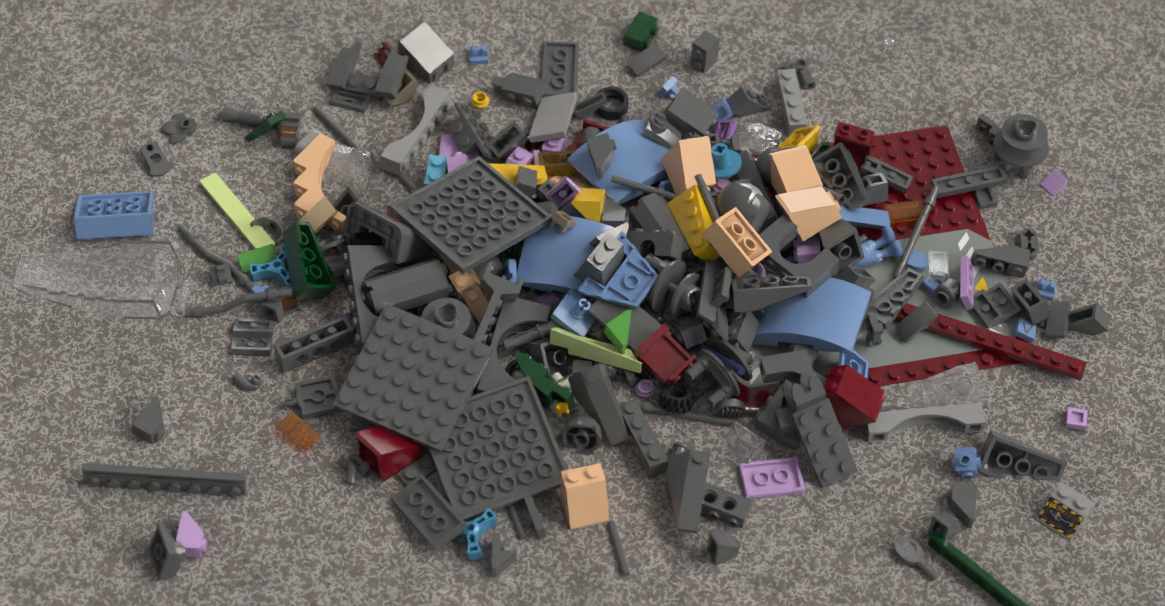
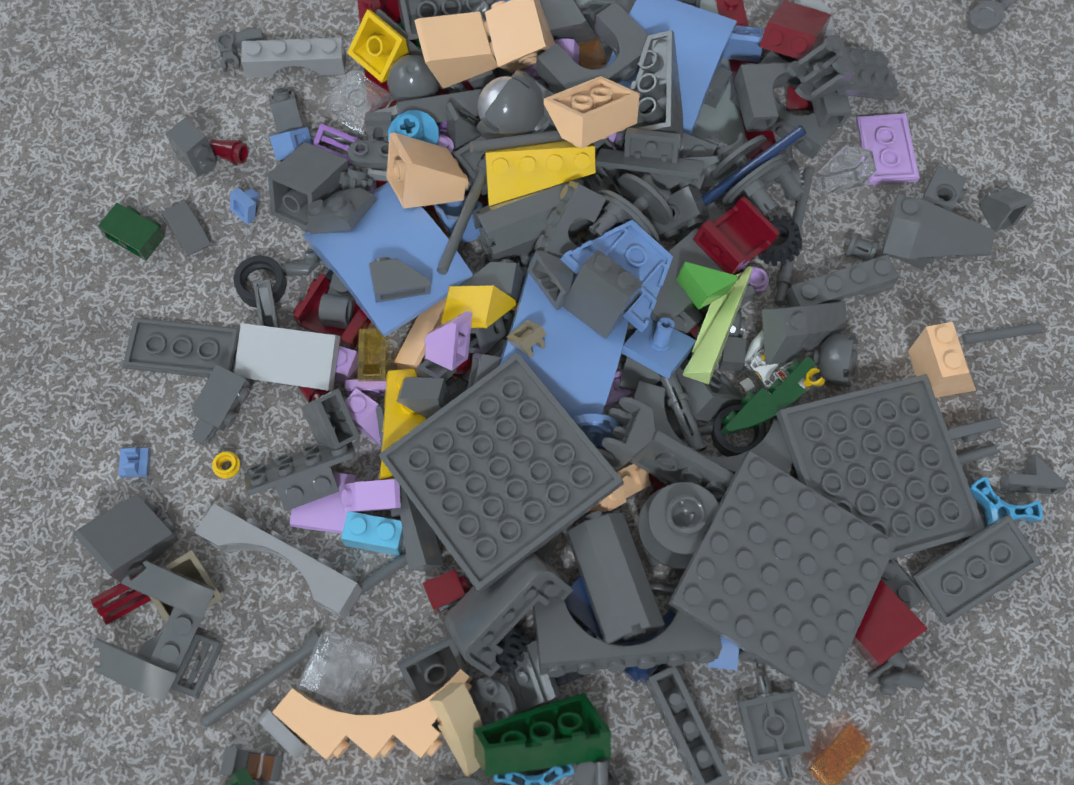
camera: 85 degrees left, 15 degrees up
(711, 77) = (230, 150): none -> dark red cone

